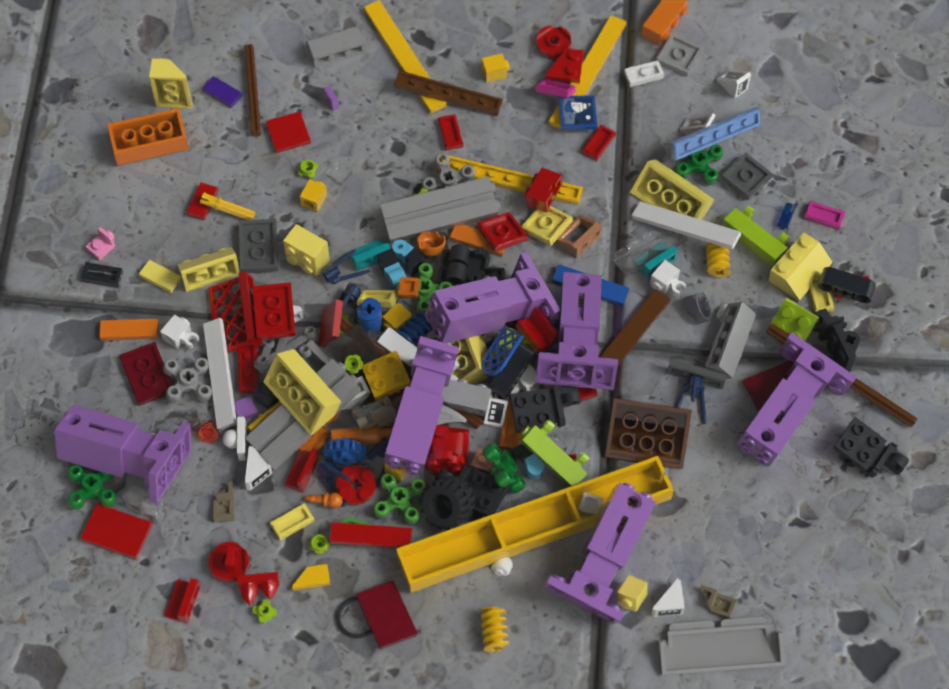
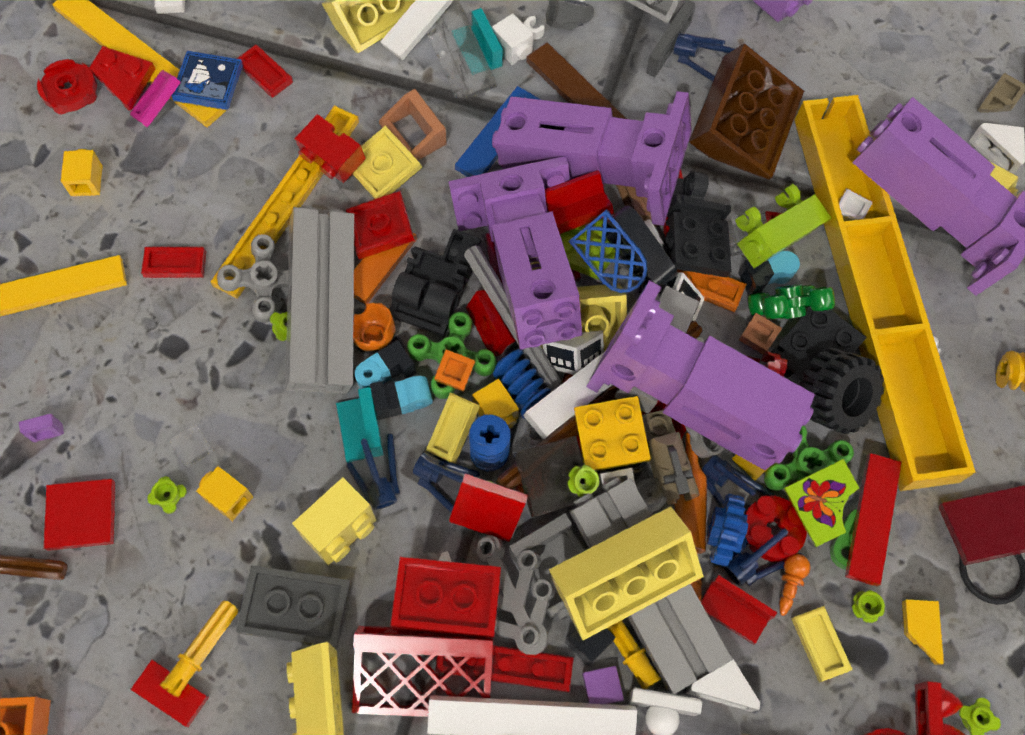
camera: 80 degrees left, 5 degrees up
(374, 501) = (821, 501): none -> lime tile
(448, 93) = (100, 249): reddish brown tile -> none

